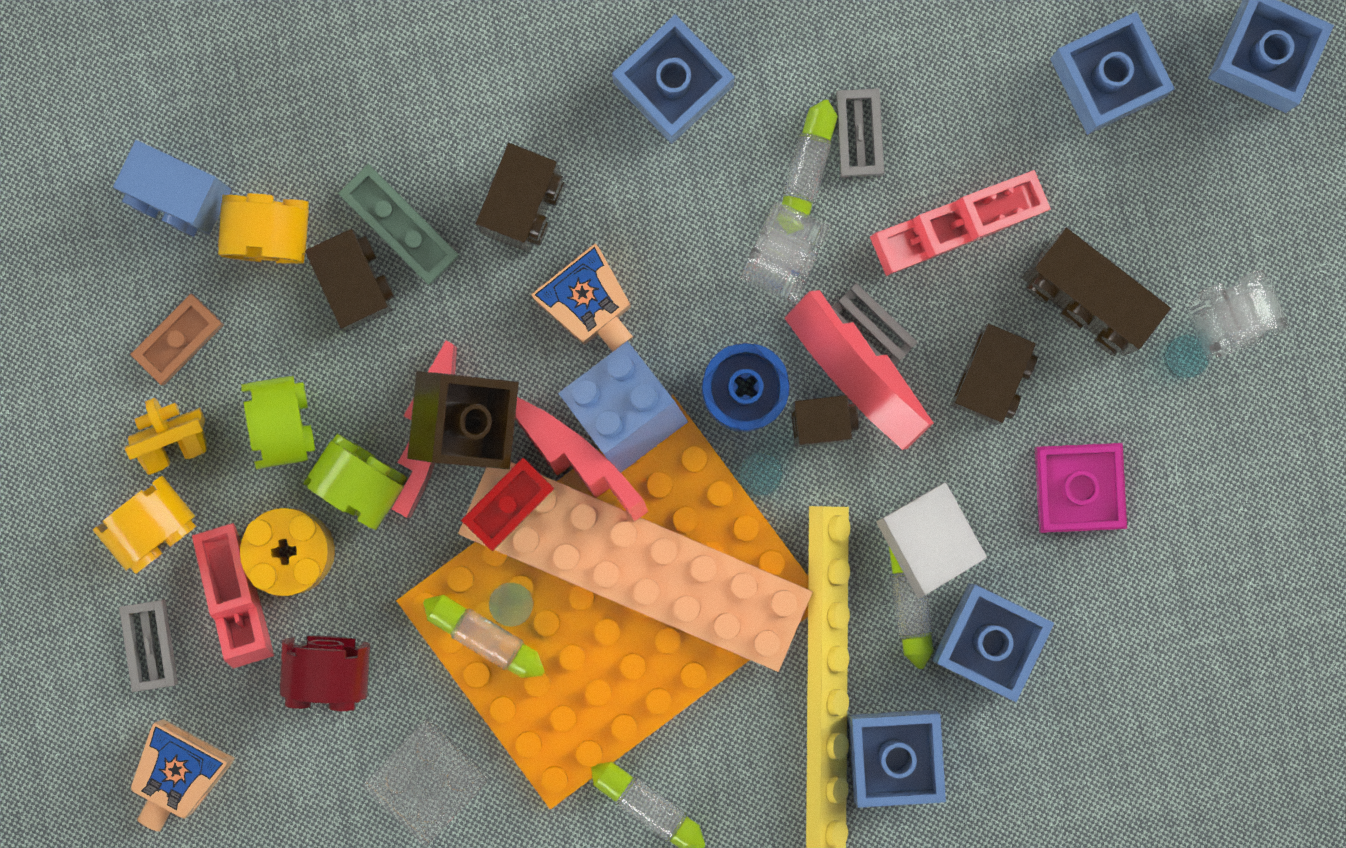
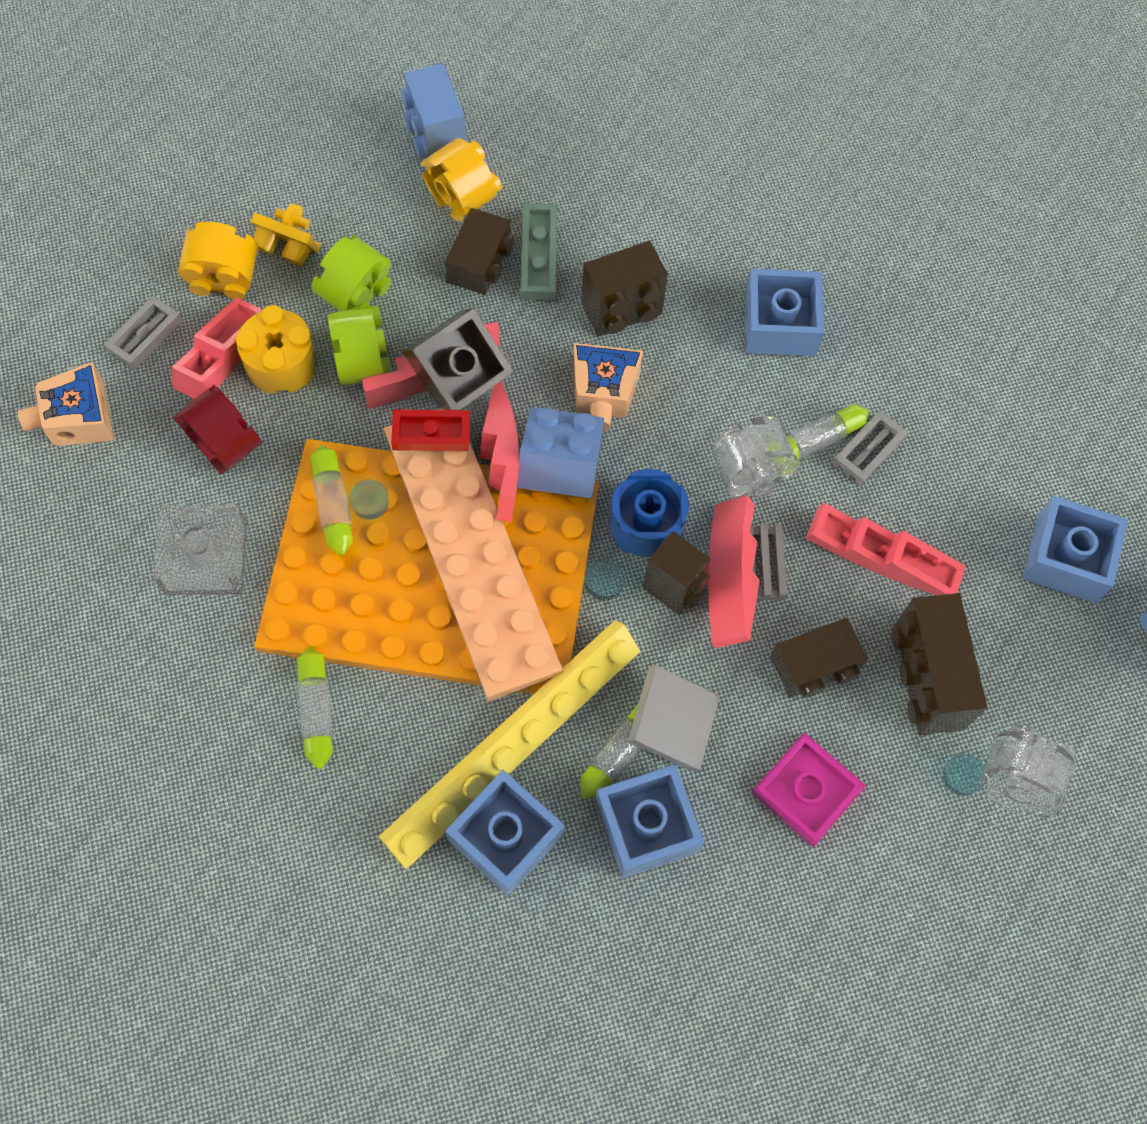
camera: 45 degrees right, 20 degrees down
(177, 339) = (349, 197): nougat plate -> none

